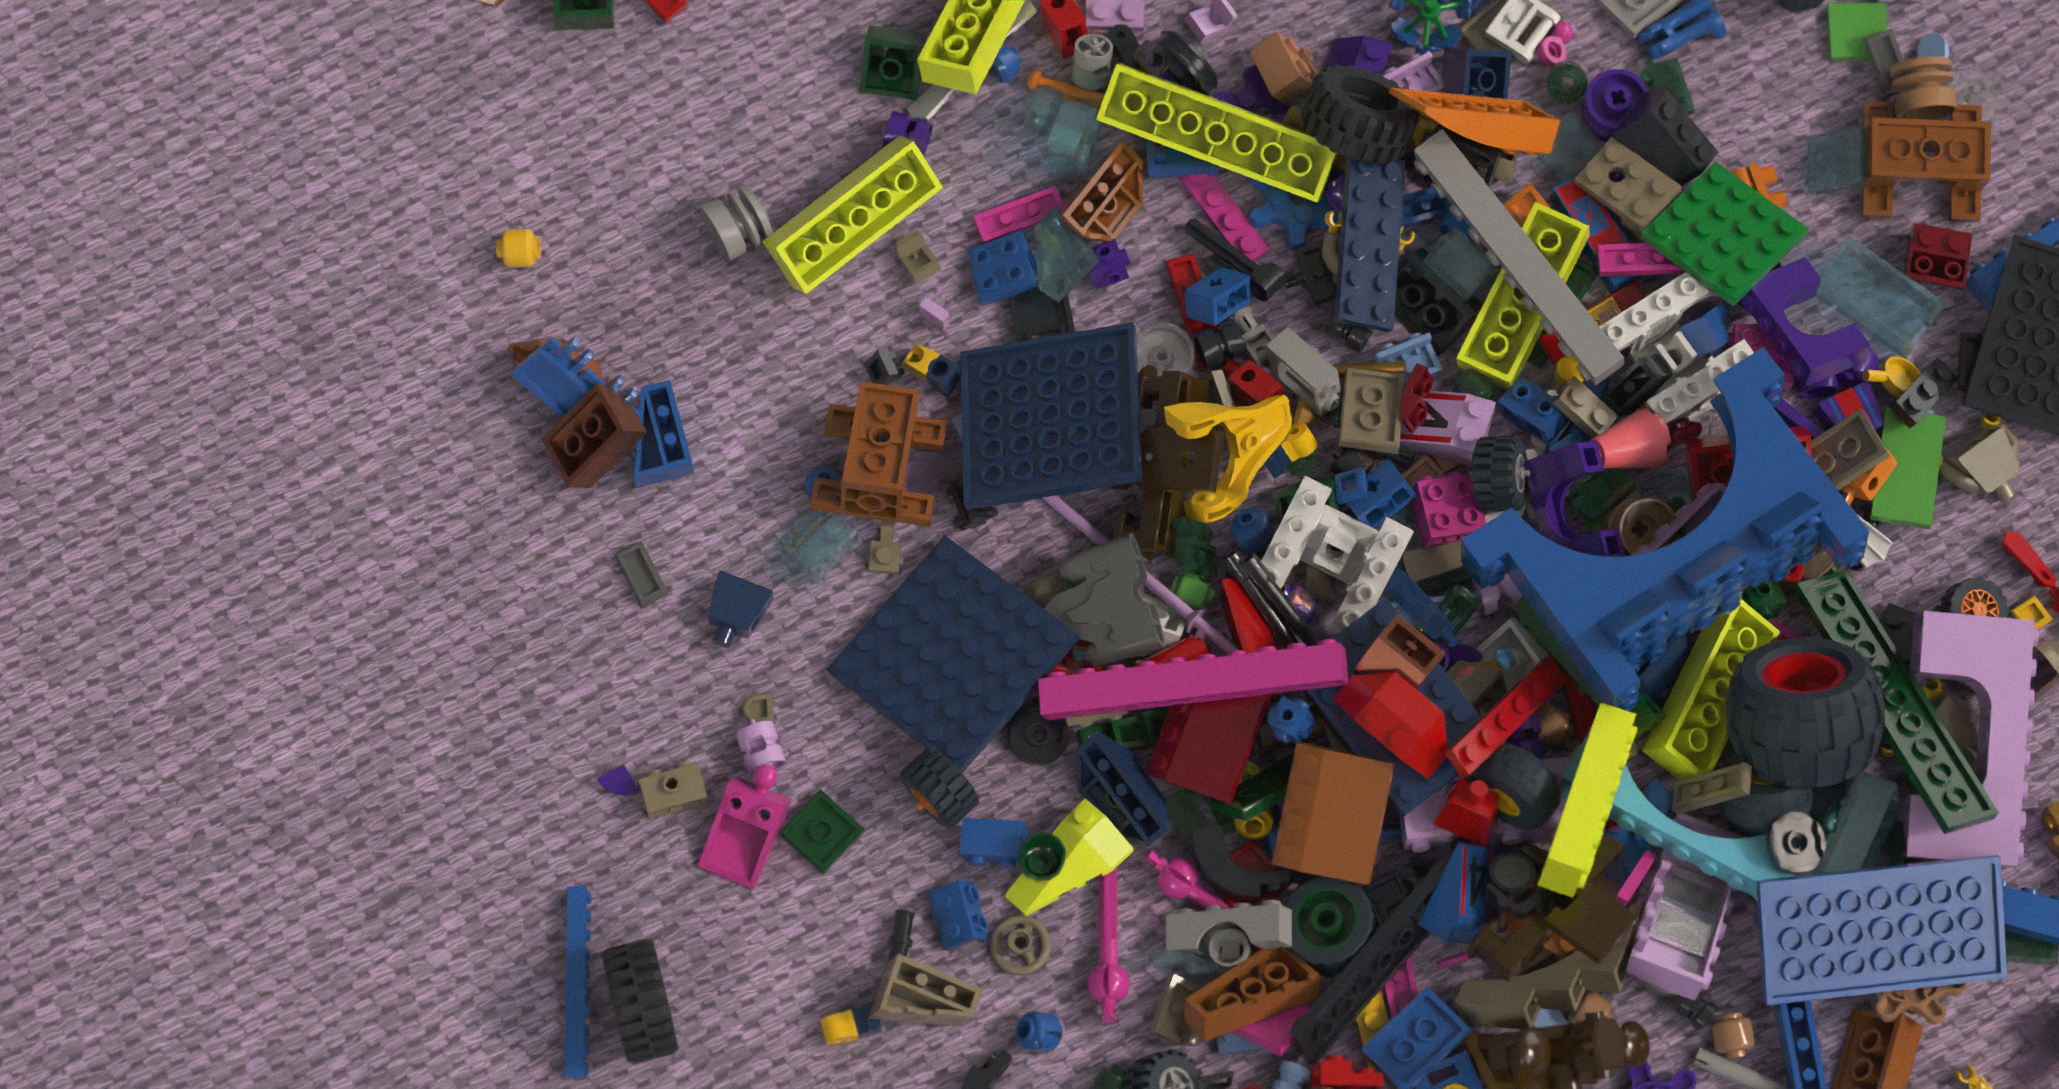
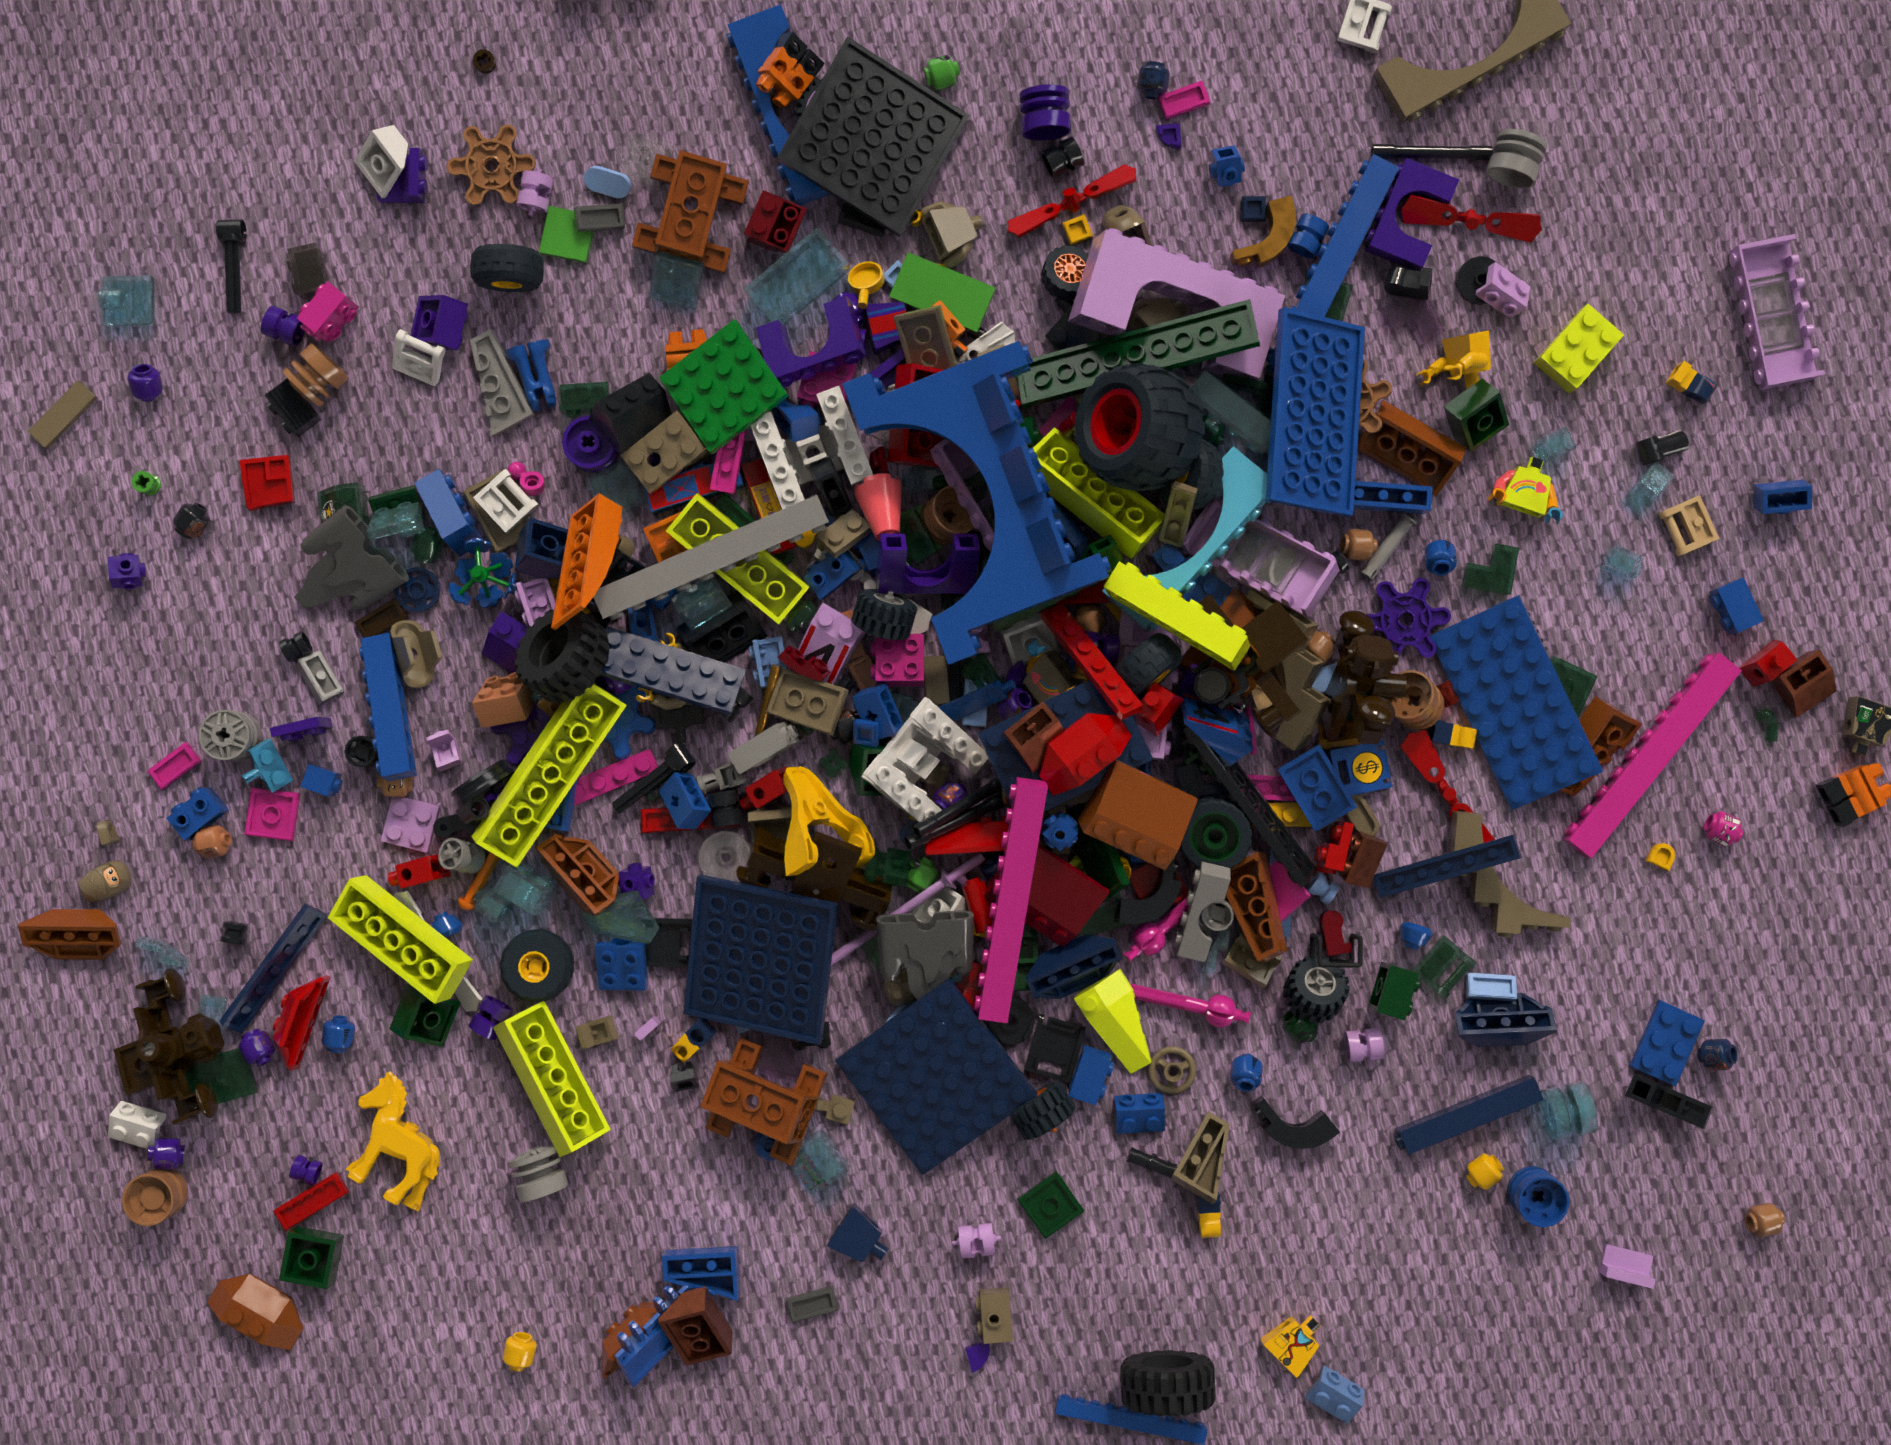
camera: 70 degrees left, 15 degrees up
(741, 62) = (398, 1140): none -> yellow animal
(741, 833) = (1037, 1264): dark pink slope -> none
(759, 708) = (942, 1233): dark tan tile -> none
(981, 172) = (536, 965): none -> black wheel
(1016, 215) = (579, 941): dark pink plate -> none
(1020, 794) = (1056, 1044): none -> black container
(1042, 856) = (1117, 1044): dark green hair -> none
(1252, 530) = (882, 817): blue head -> none
(1296, 445) = (821, 765): yellow leg -> none
(1304, 413) = (796, 754): pearl gold slope -> none
(1572, 71) = (555, 471): clear green wheel -> none
(1635, 878) = (1229, 591): dark pink tile -> none
(1808, 839) = (1243, 452): plate -> none
(1923, 88) = (633, 195): medium nougat wheel -> none
(1923, 392) = (884, 264): black plate -> none

